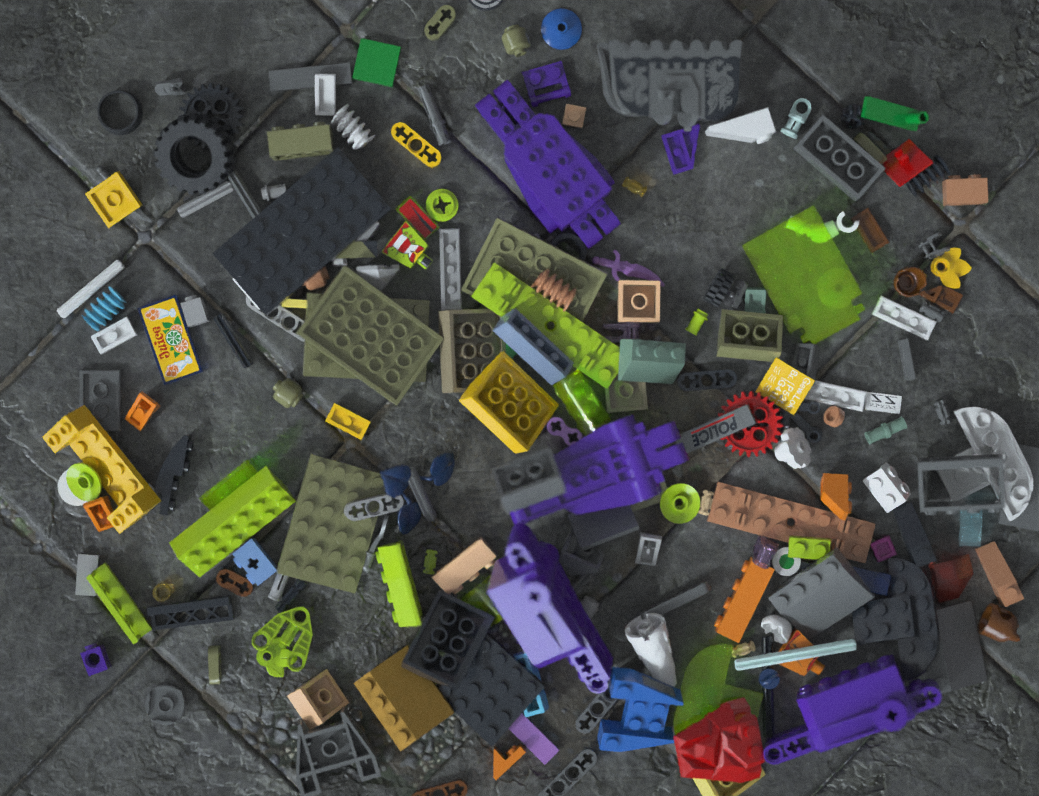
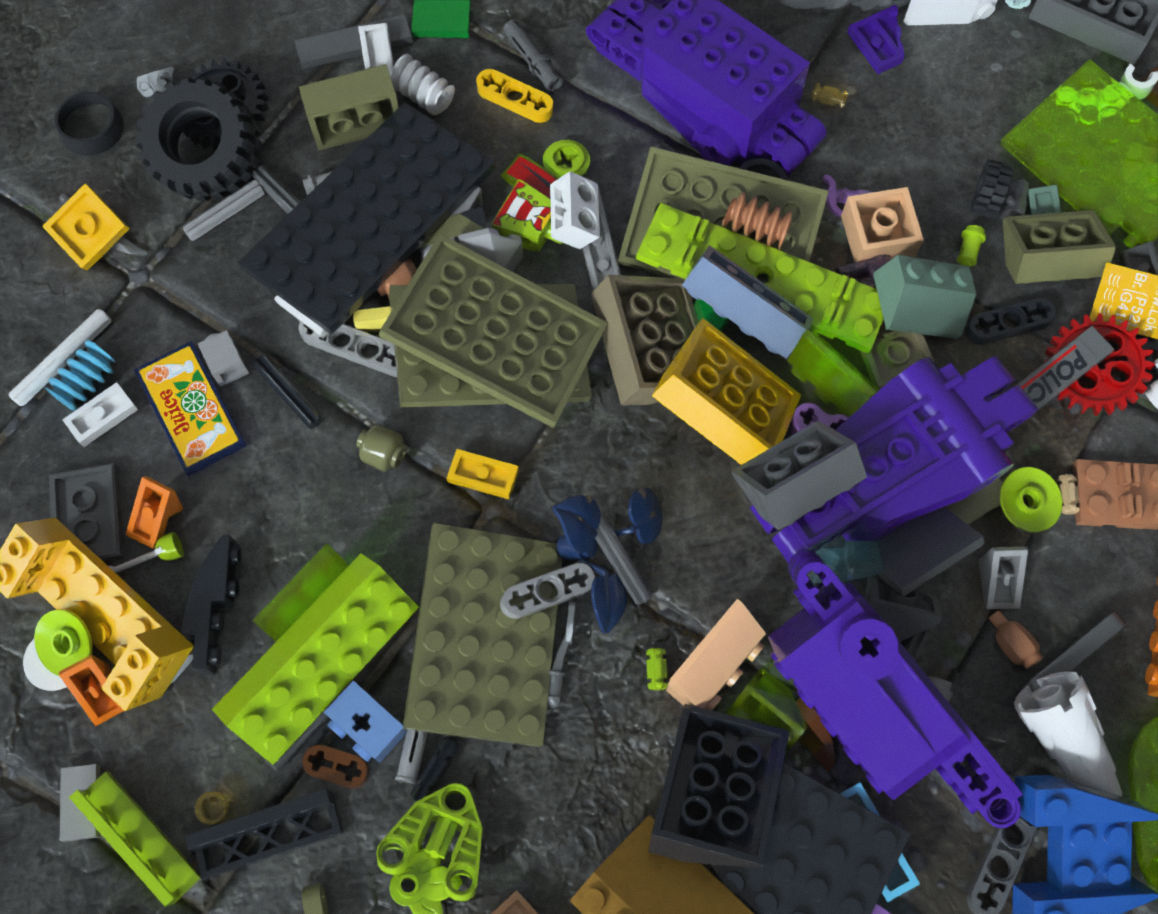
camera: 10 degrees left, 20 degrees down
(149, 432) = (167, 548): none -> lime hinge
(400, 583) = (617, 707): lime slope -> none
(437, 254) = (574, 210): none -> white brick
(559, 521) = (853, 561): none -> clear light blue slope
(645, 586) = (1016, 641): none -> nougat plant

